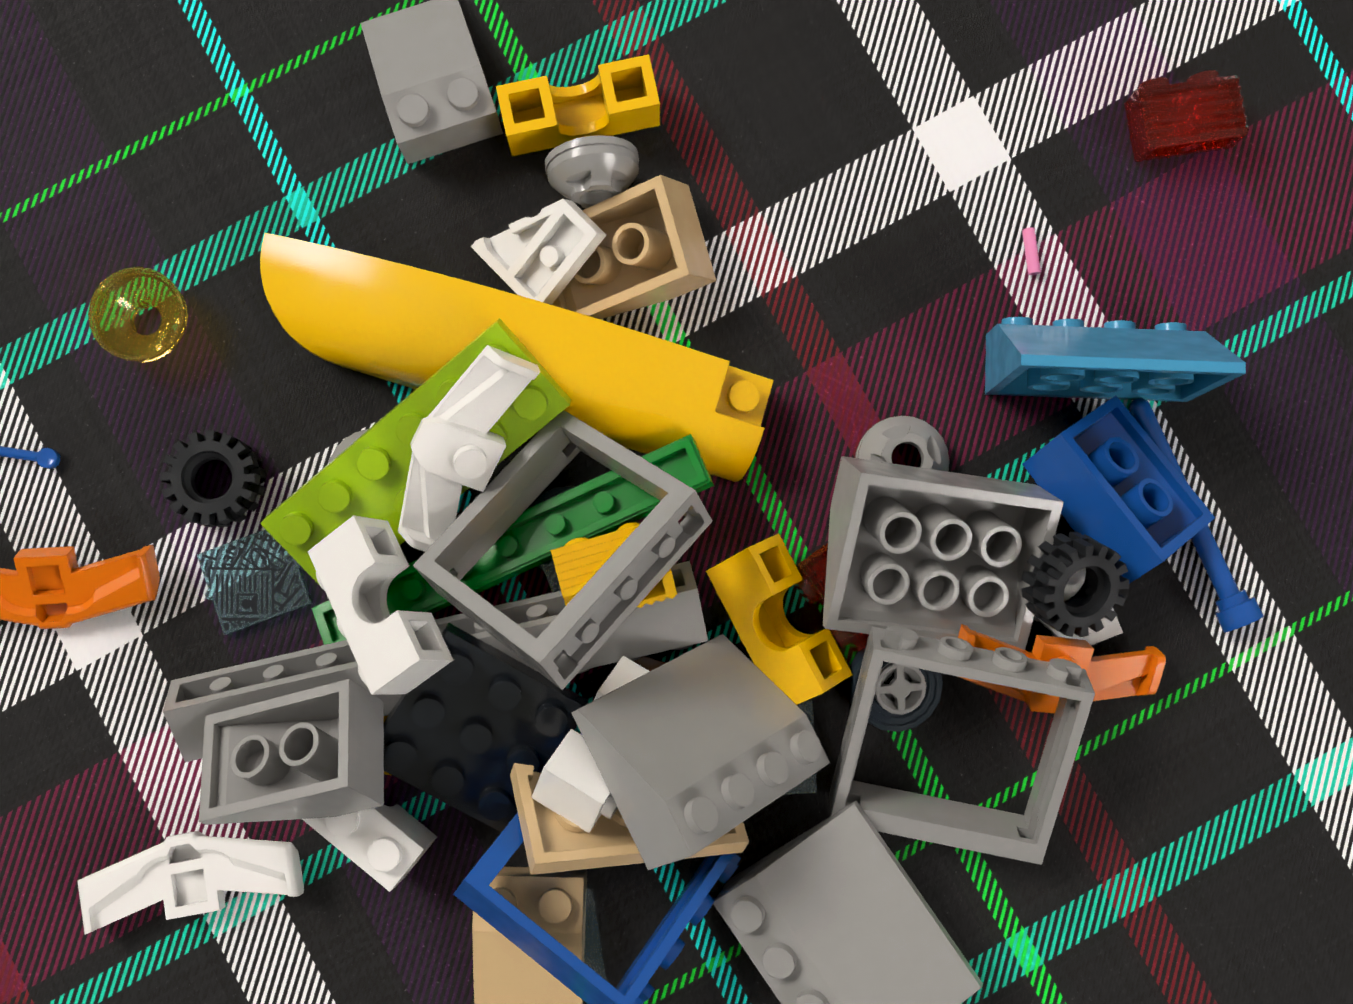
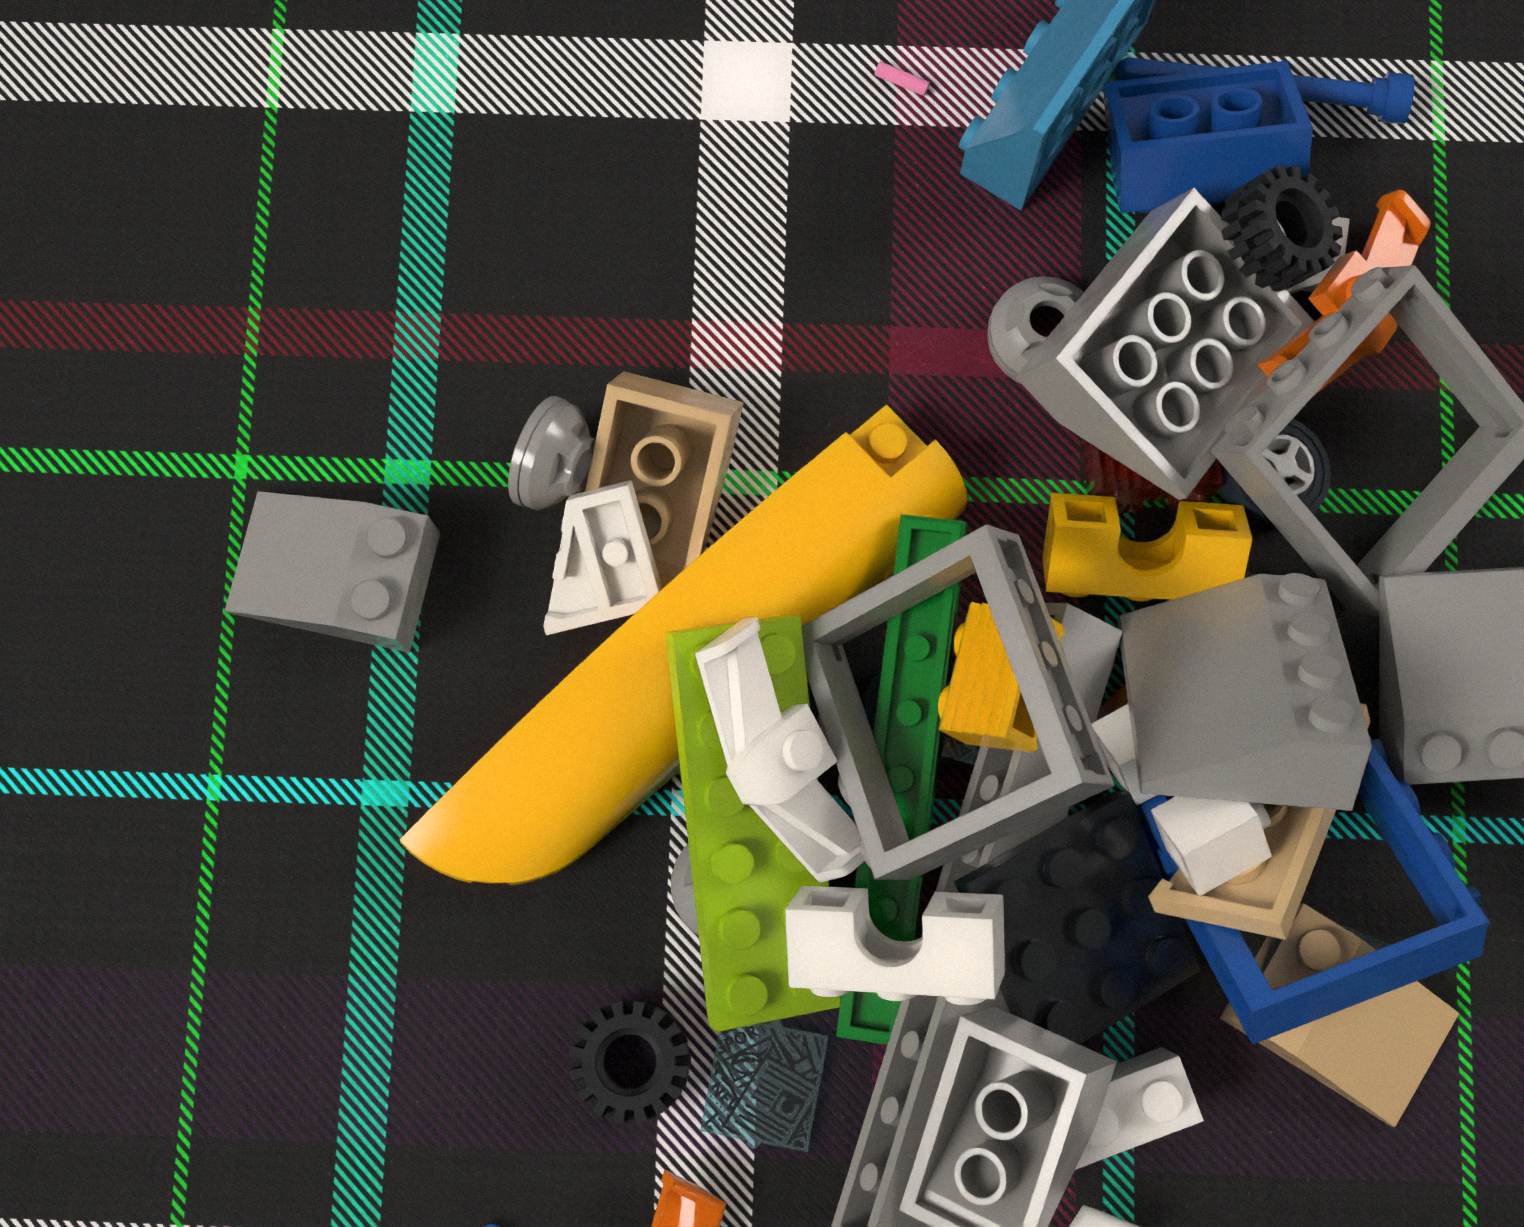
camera: 50 degrees left, 5 degrees down
(121, 299) = (365, 1041): clear yellow piece -> none
(610, 104) = (487, 397): yellow arch -> none

